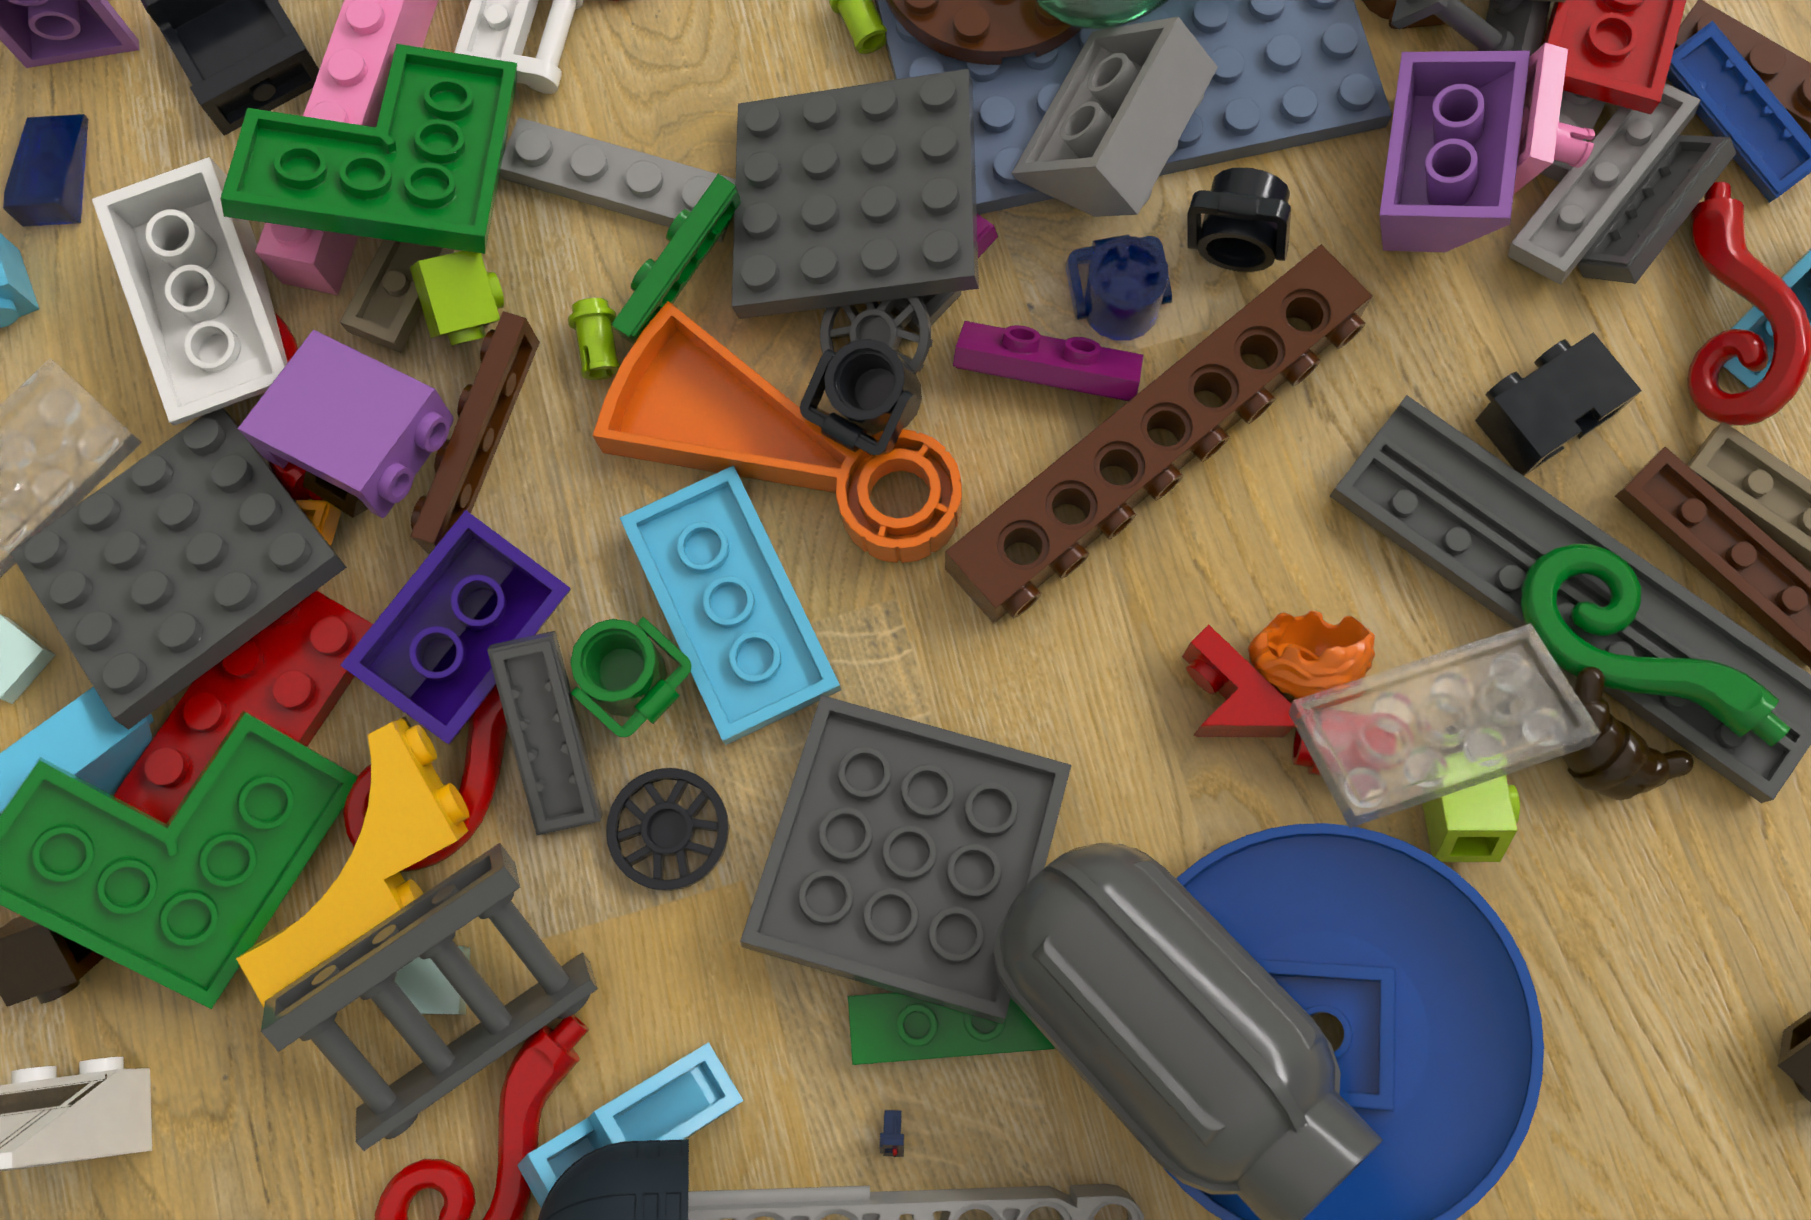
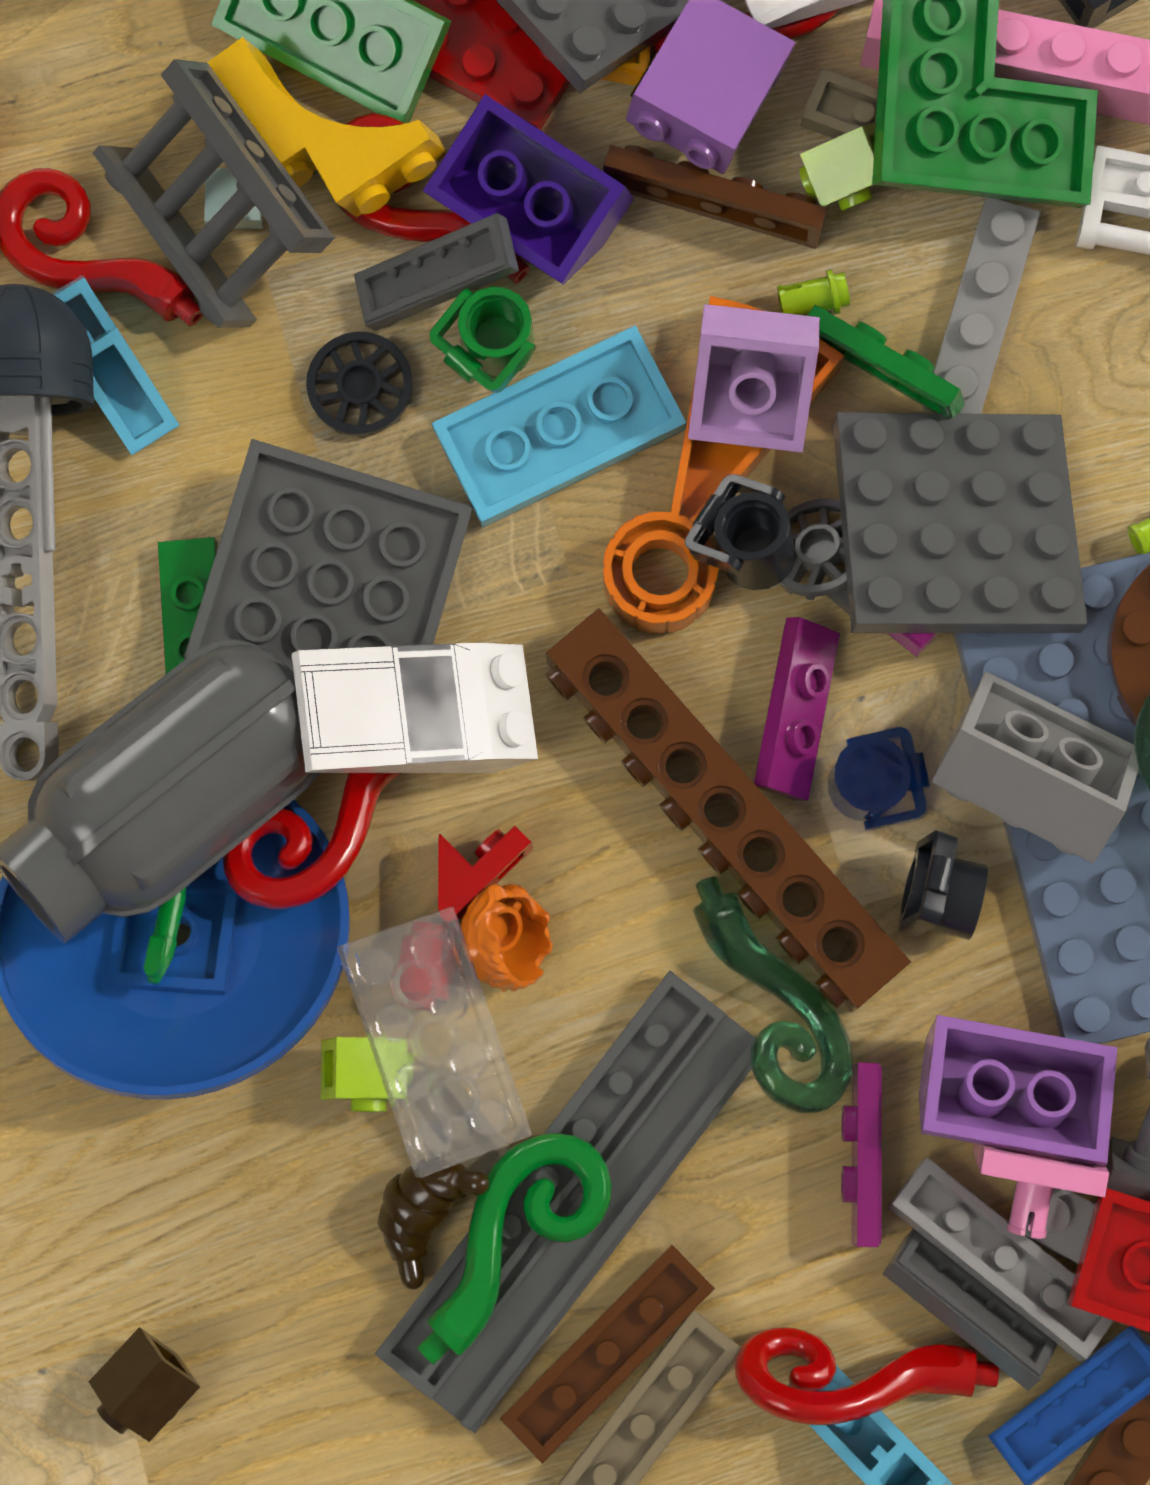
camera: 90 degrees right, 5 degrees up
(692, 379) = (754, 378): none -> lavender slope
(892, 1140) = (102, 577): dark blue piece -> none
(1073, 743) = (414, 708): none -> white slope
(1122, 804) = (320, 877): none -> red plant
(1304, 422) = (737, 946): none -> clear green plant
(1359, 1036) = (163, 940): none -> green piece
(1526, 301) = (863, 1180): none -> magenta plate
(1560, 400) = (772, 1200): black brick -> none

